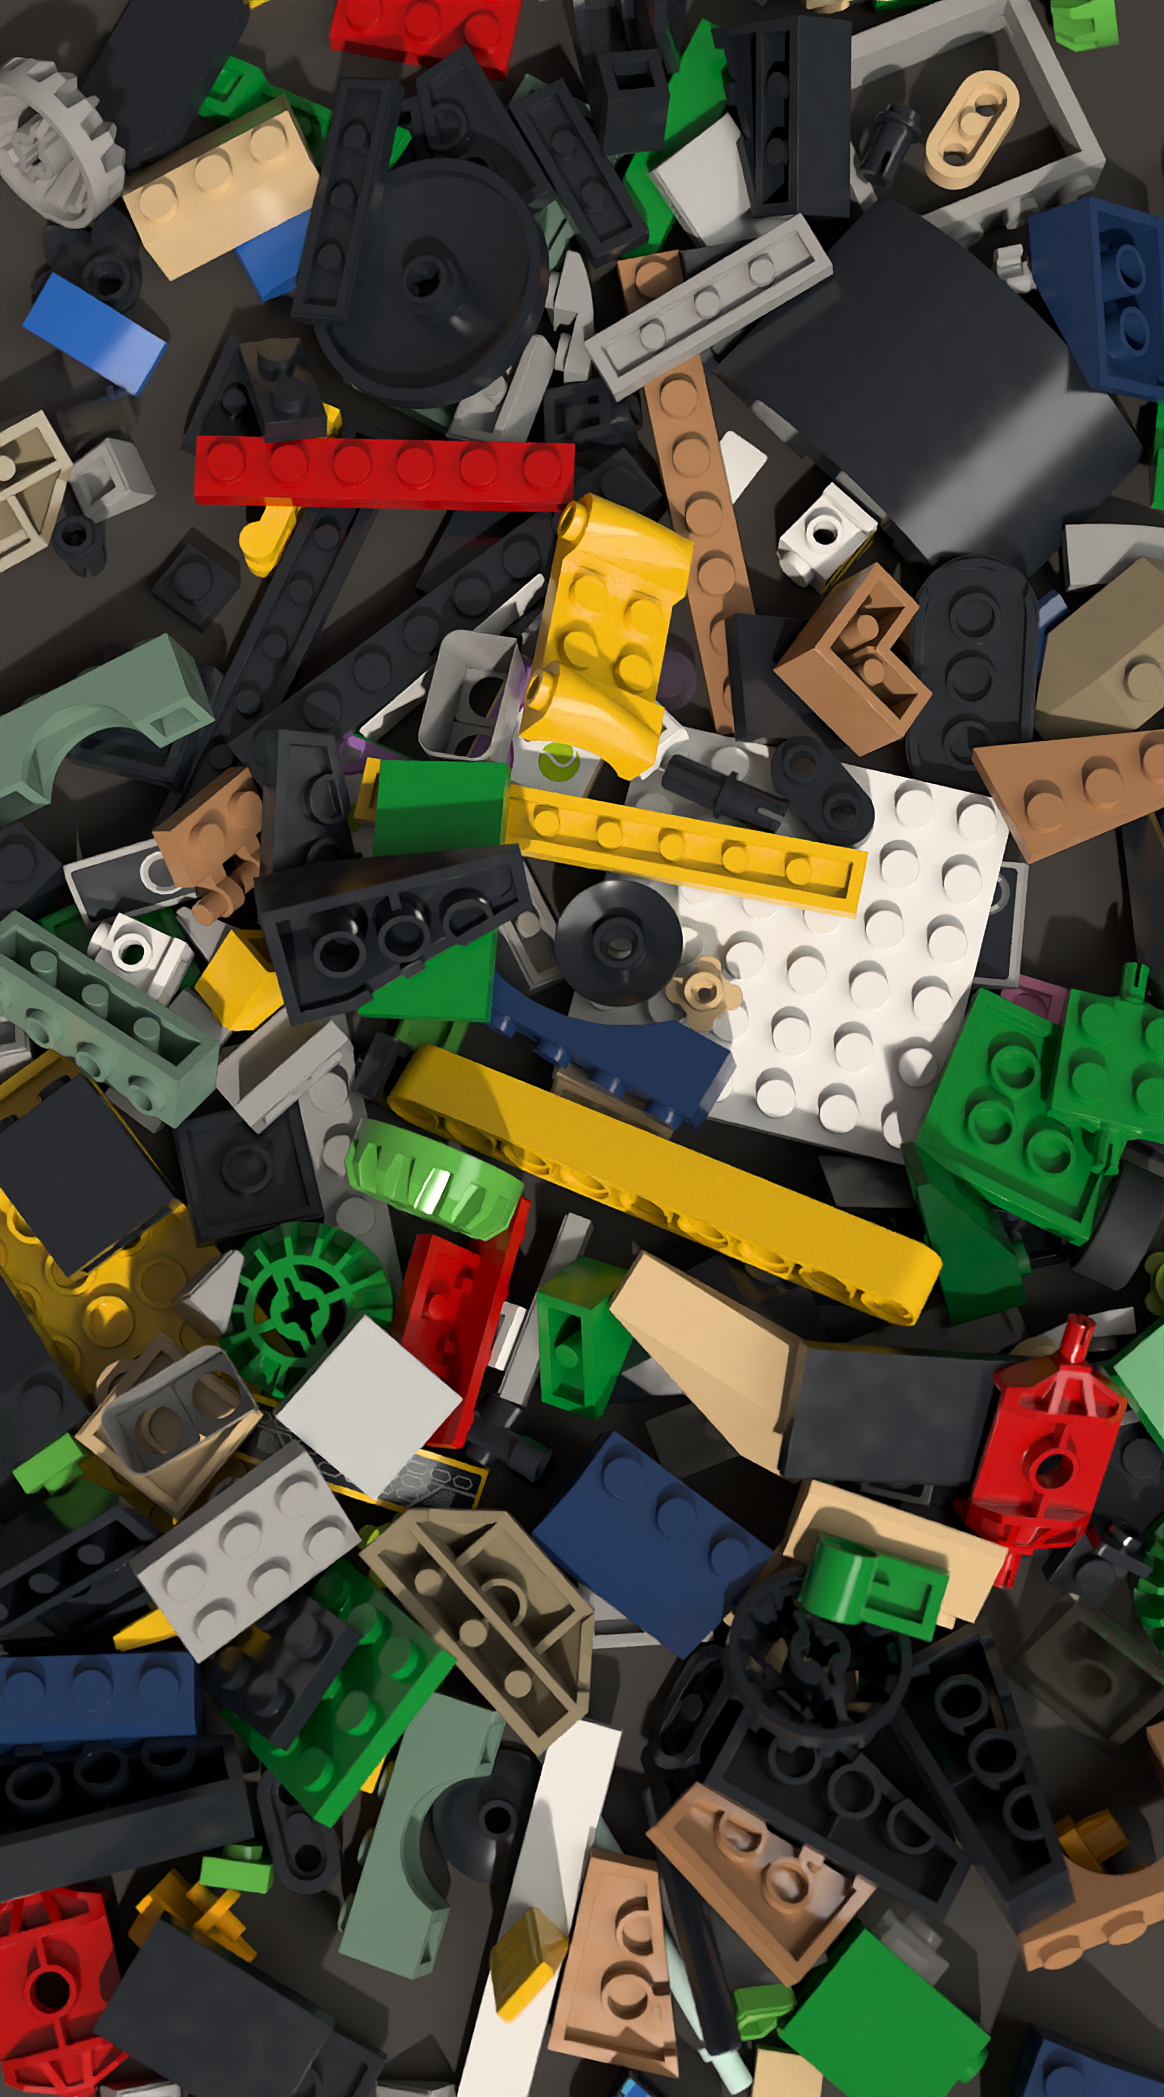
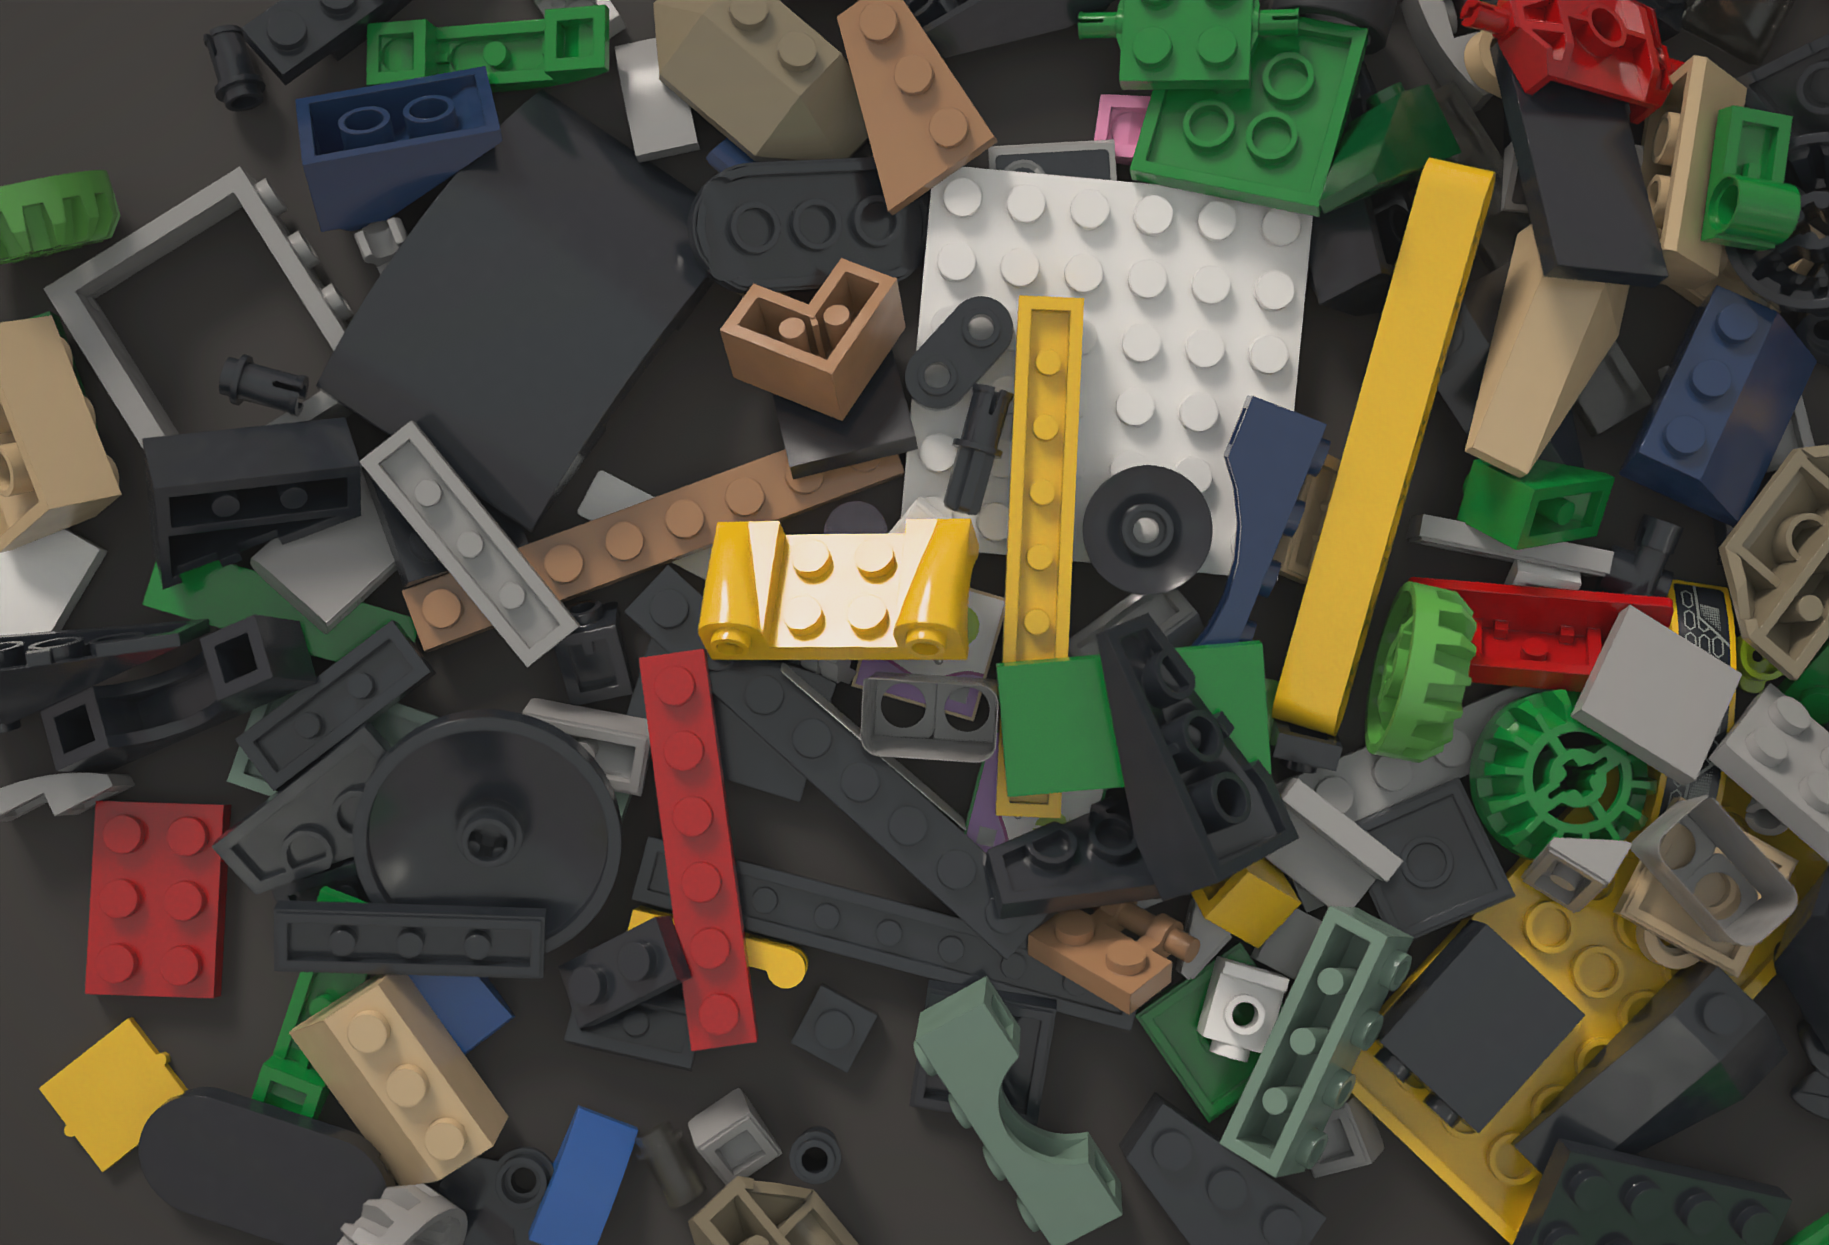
camera: 100 degrees left, 5 degrees up
(54, 1466) = (1769, 994): bright green plate -> none
(124, 882) = (1167, 1043): black slope -> none
(573, 318) = (482, 685): light grey slope -> none
(701, 1012) = (1200, 437): tan plate -> none
(819, 564) = (663, 379): white brick -> none
(969, 134) = (236, 304): tan plate -> none

